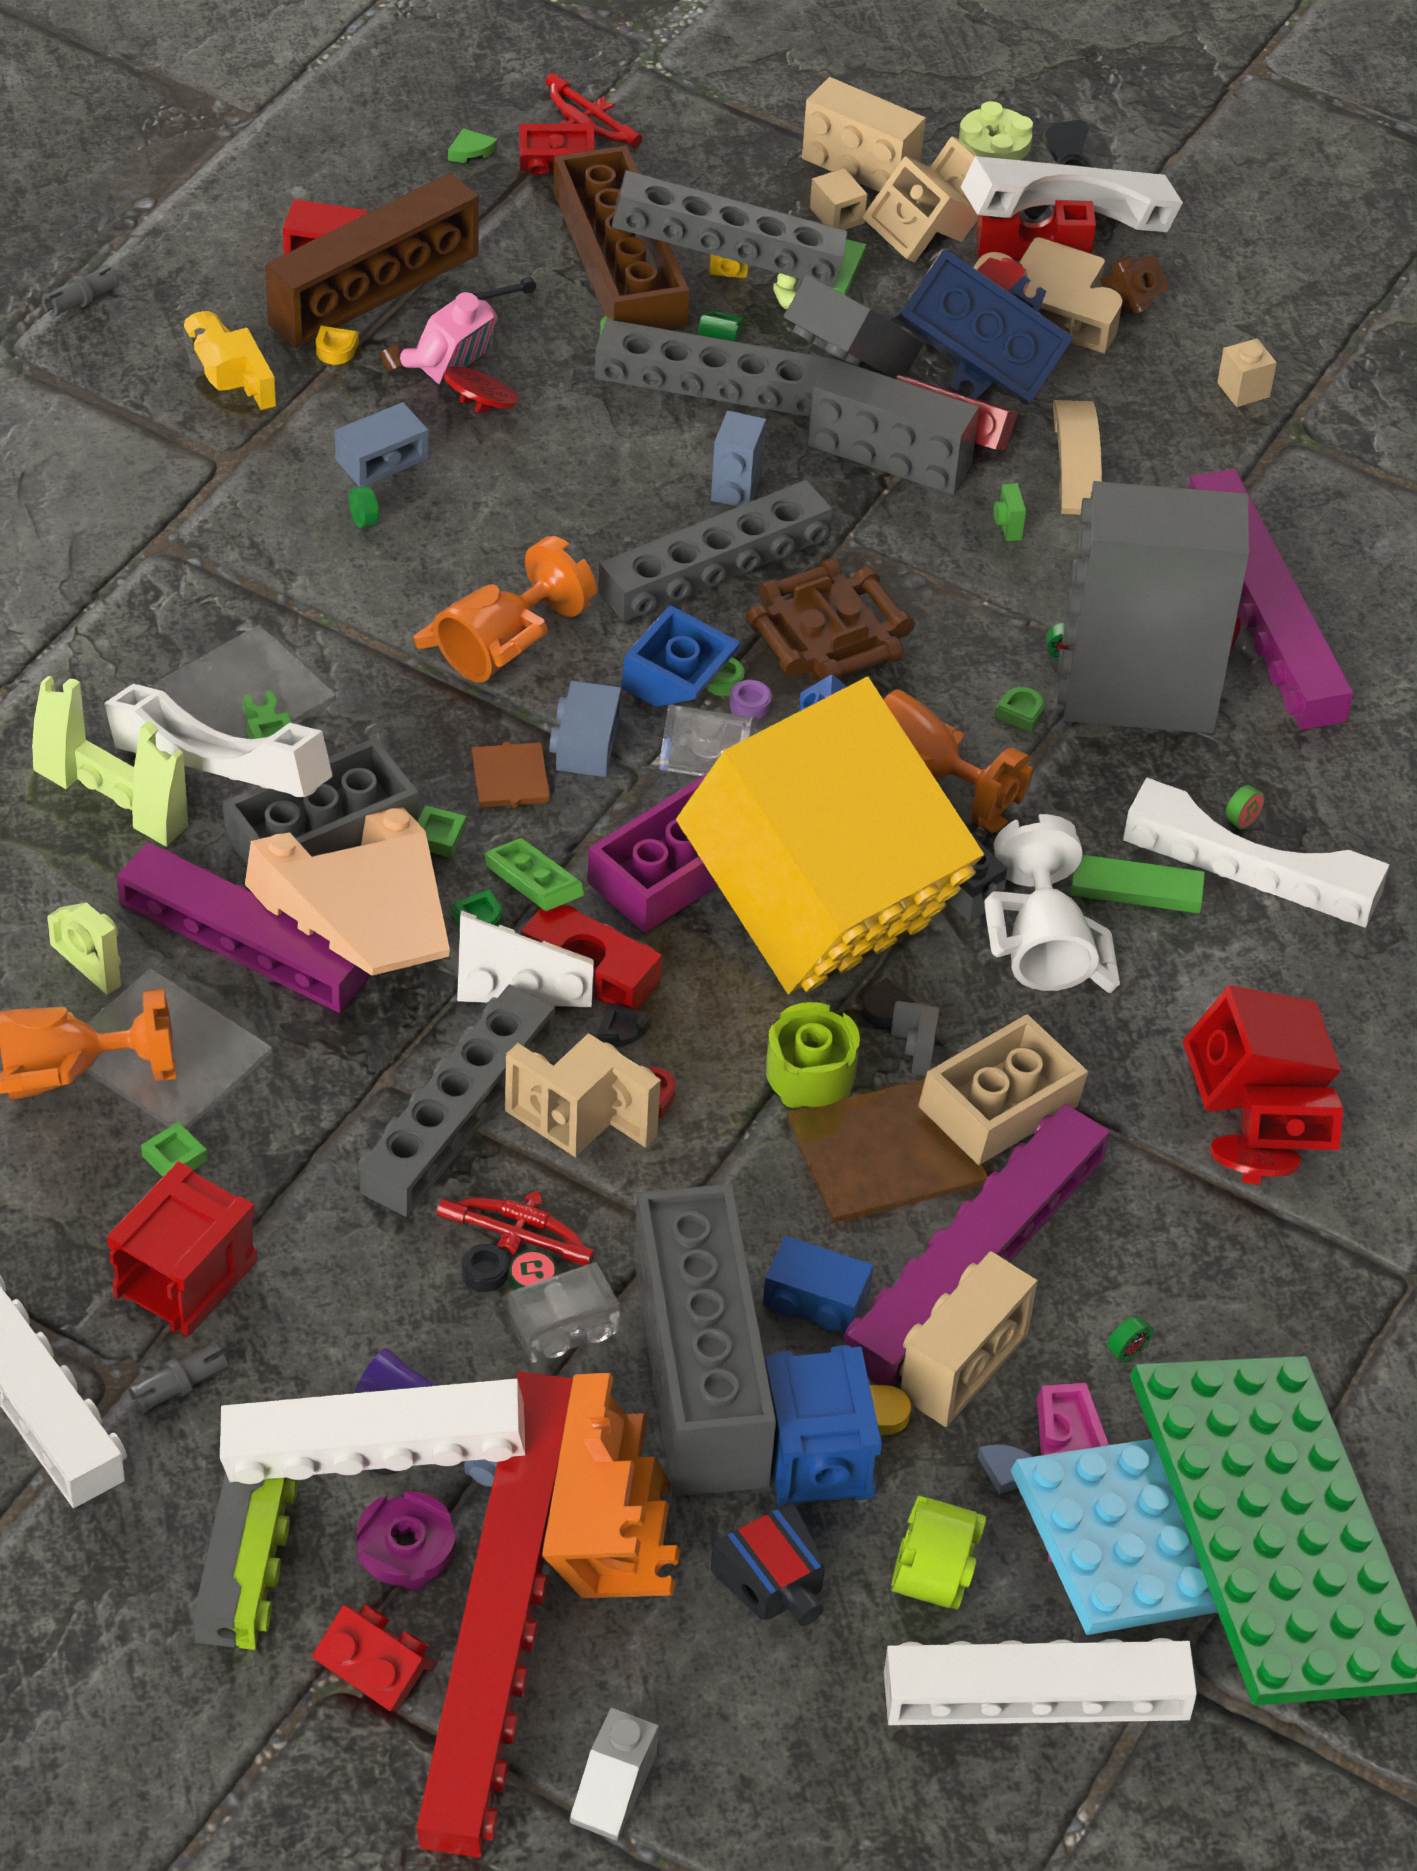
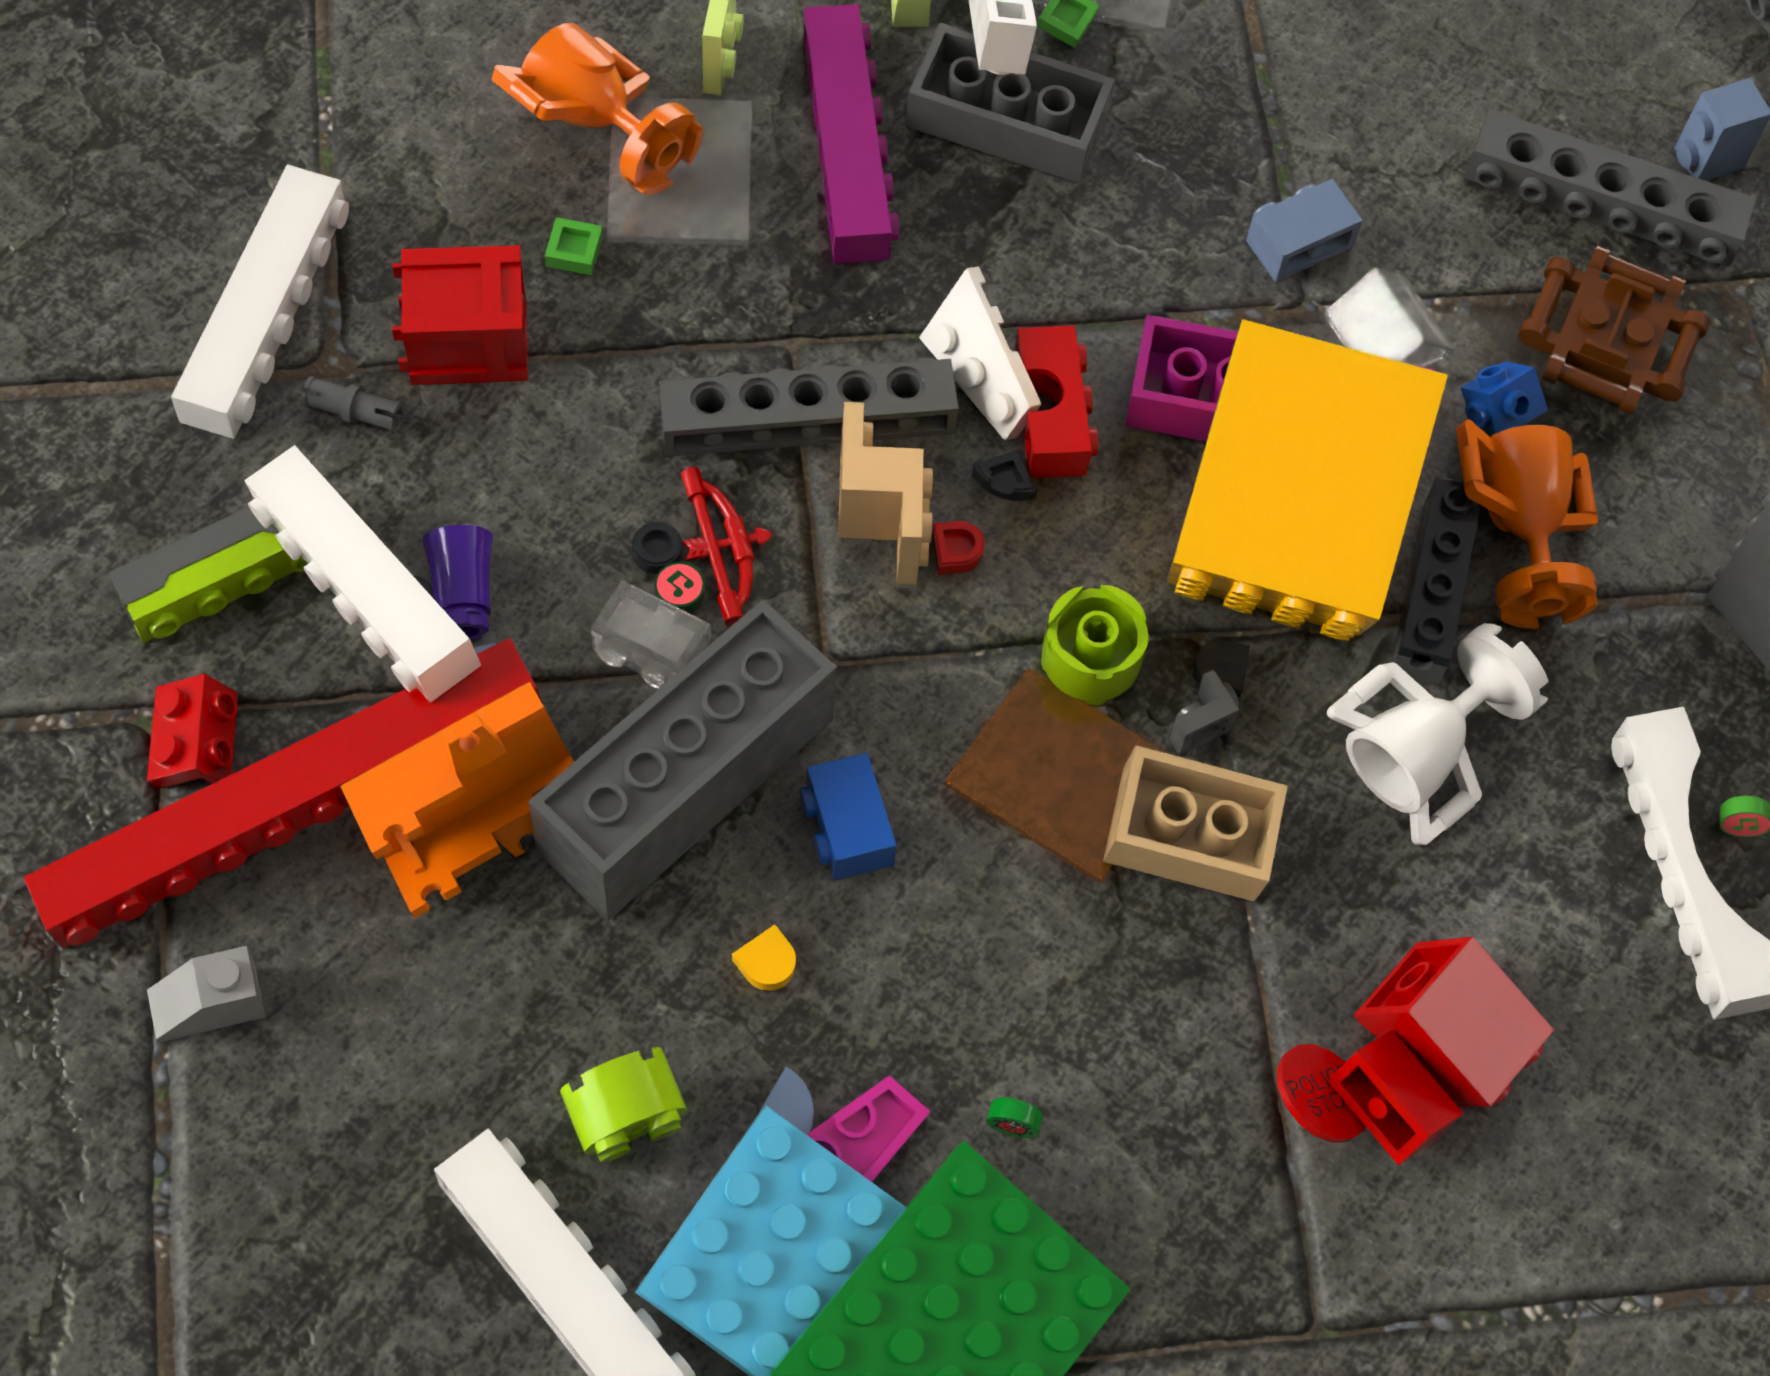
camera: 50 degrees right, 15 degrees up
(367, 900) = (938, 198): light nougat wedge -> none
(410, 1564) = (328, 704): magenta plate -> none
(442, 830) = (1083, 199): bright green plate -> none
(482, 905) = (1028, 290): green tile -> none
(496, 625) = (1336, 81): orange piece -> none
(510, 775) = (1204, 210): dark orange piece -> none
(534, 874) = (1094, 298): bright green tile -> none
(675, 659) = (1440, 237): blue slope -> none
(726, 678) = (1476, 292): bright green tile -> none
(750, 698) = (1470, 330): medium lavender tile -> none
(772, 1566) = (518, 980): black torso -> none
(822, 1426) = (680, 916): blue container -> none
(967, 1337) = (881, 975): tan brick -> none
(998, 1220) = (1011, 918): magenta brick -> none
(1021, 708) = (1681, 550): bright green tile -> none
(1138, 884) = (1566, 784): bright green tile -> none

